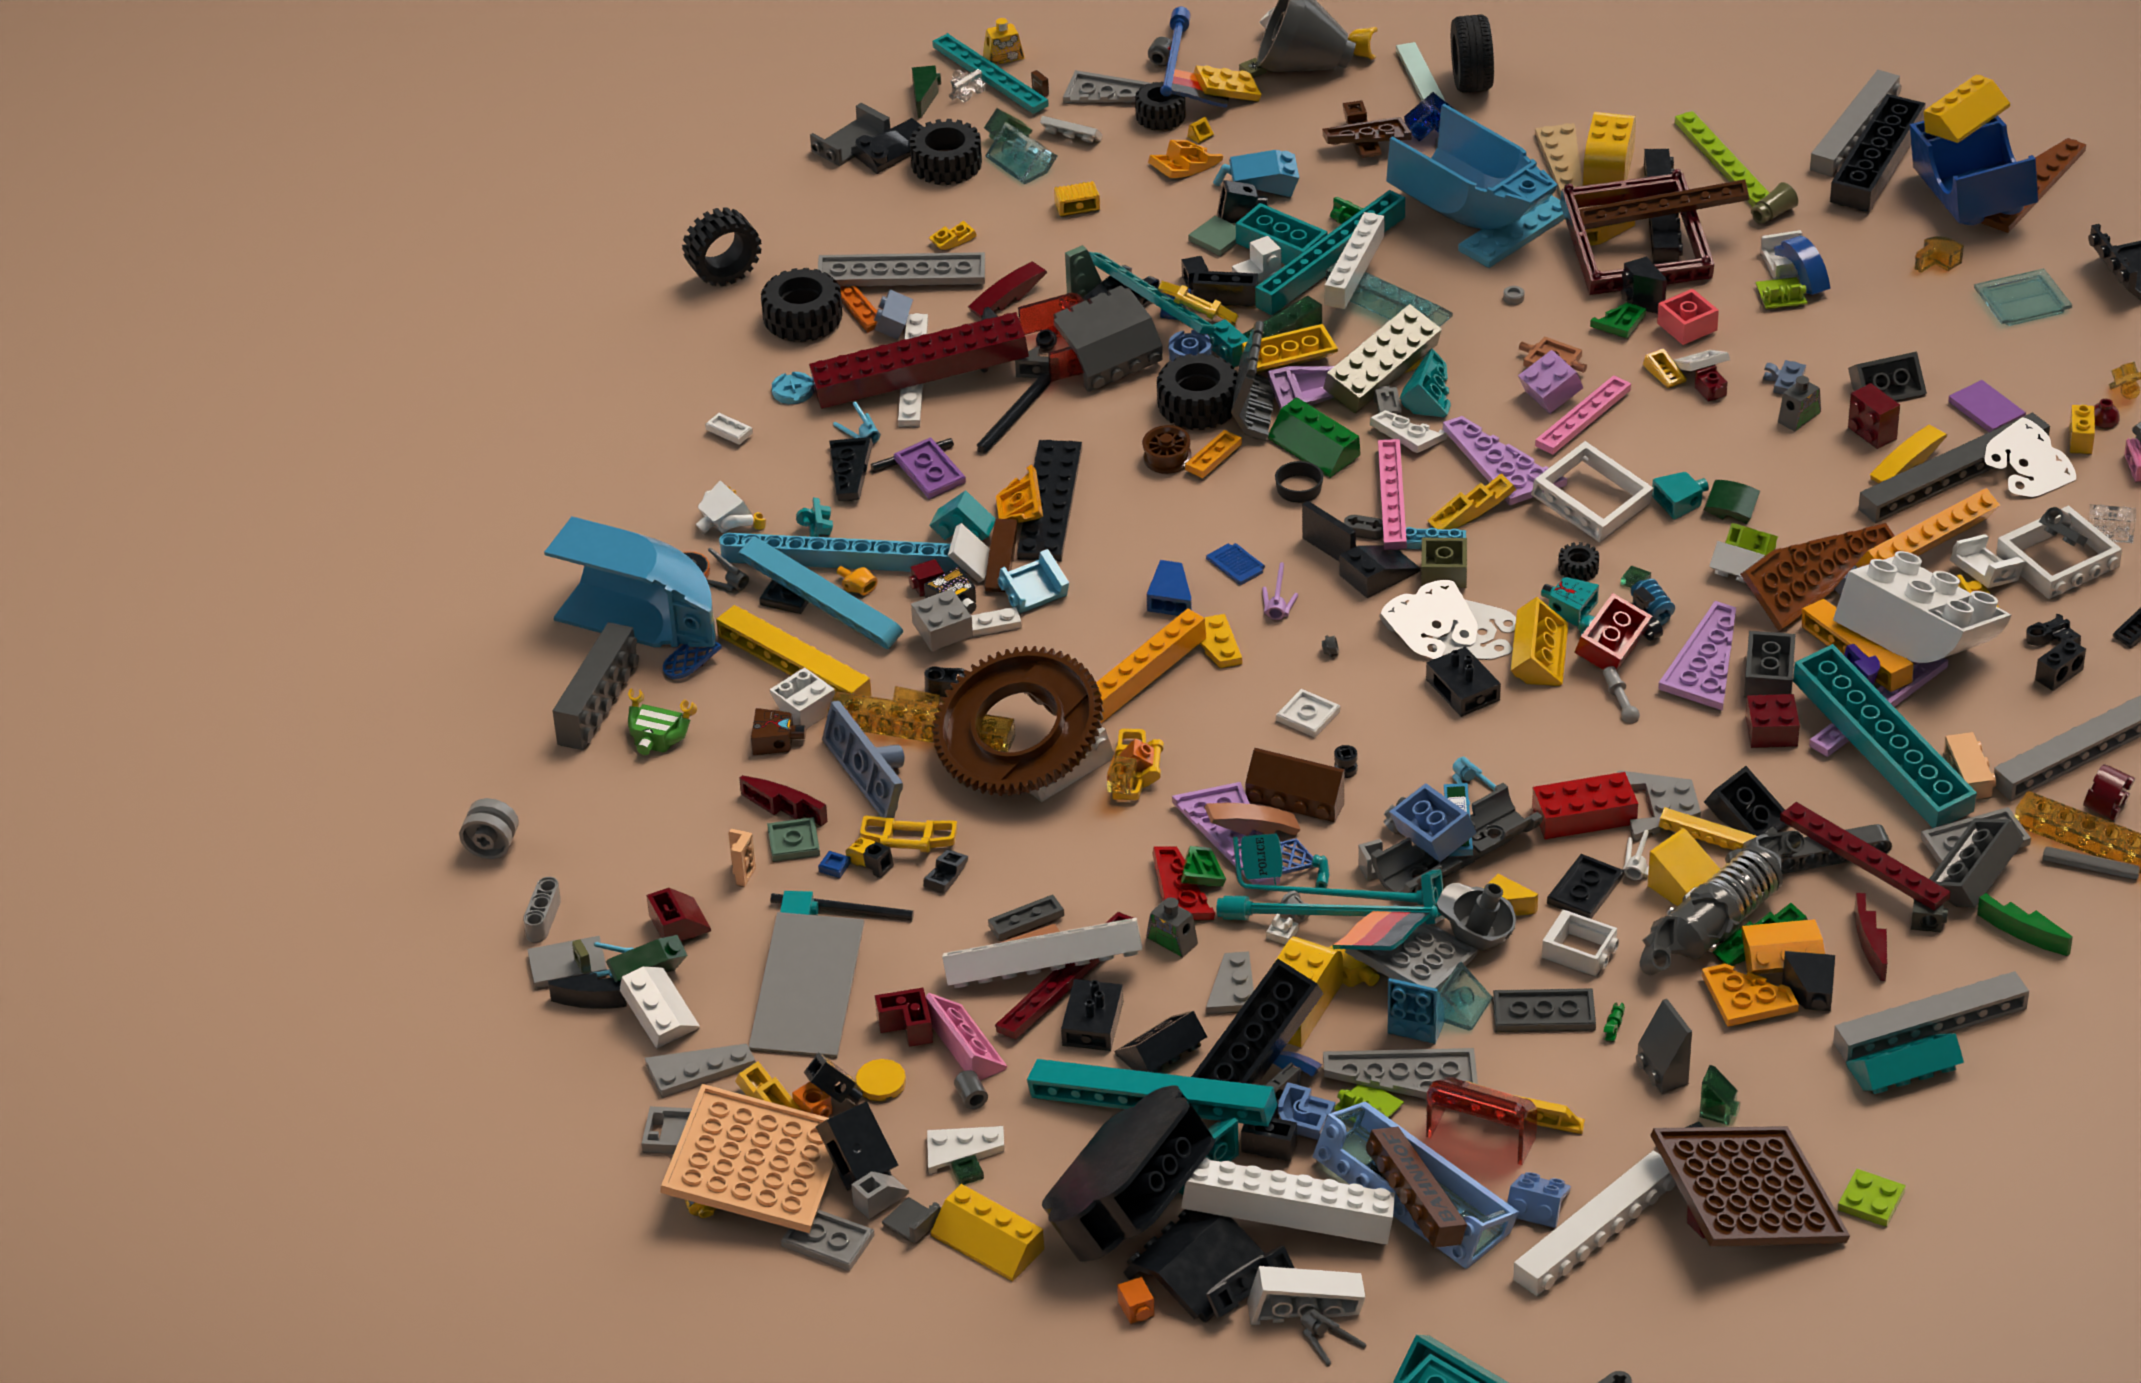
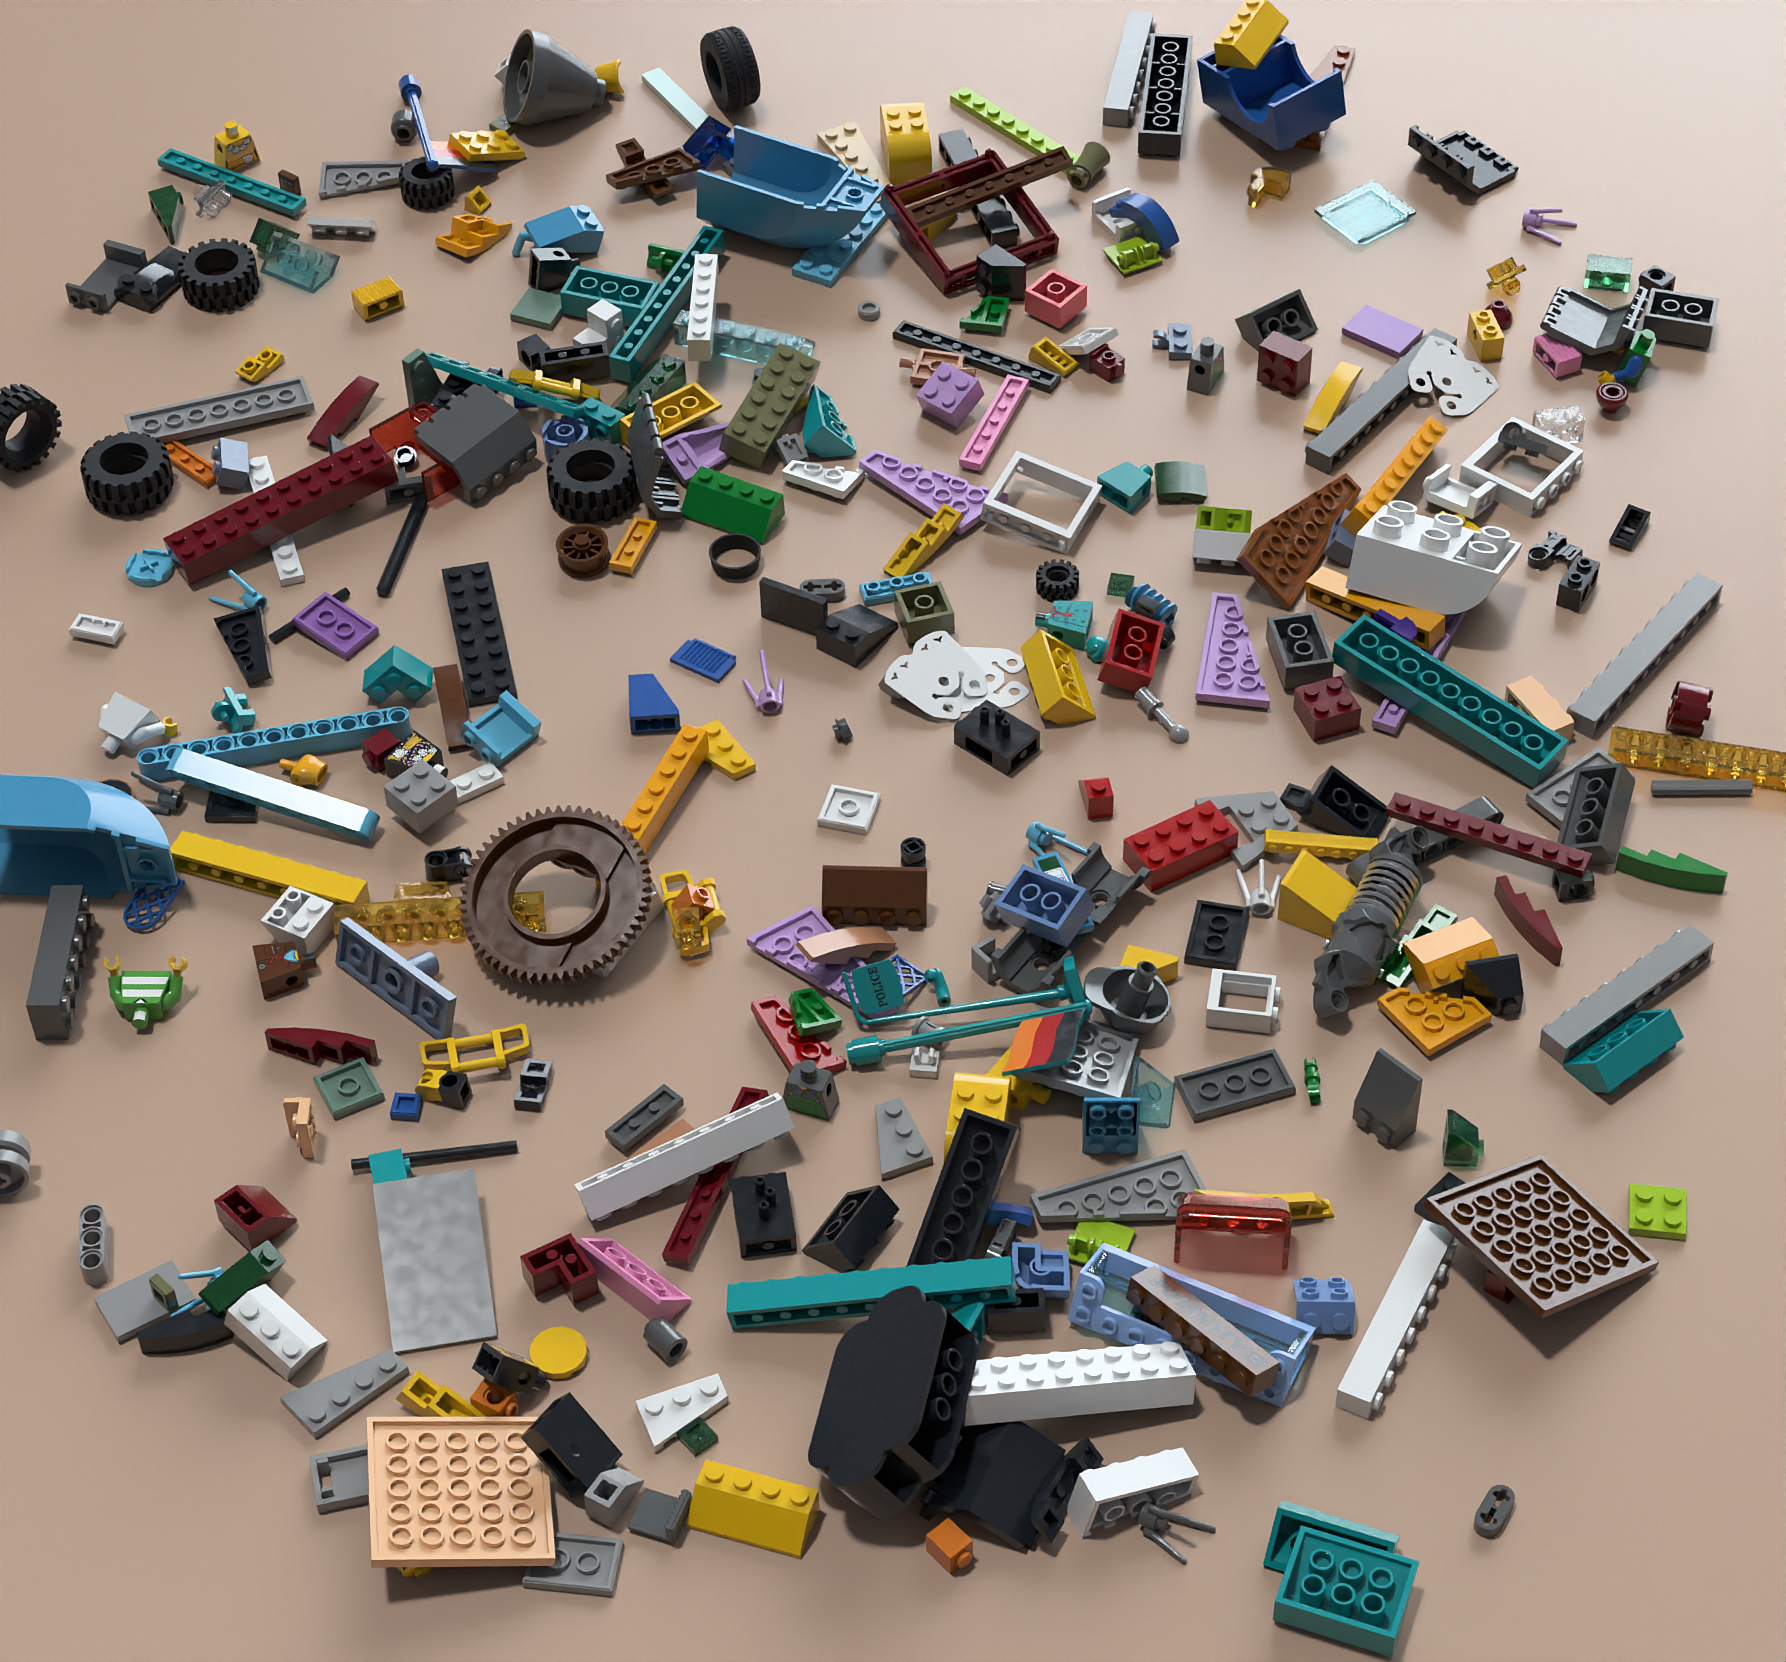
camera: 20 degrees left, 5 degrees up
(969, 553) = (419, 712): white tile -> none
(1021, 498) = (450, 640): light orange wing -> none
(1392, 494) = (839, 550): bright pink plate -> none
(1530, 750) = (1097, 797): none -> red slope
(1595, 354) = (977, 356): none -> black tile
(1706, 787) = (1293, 796): none -> black tile

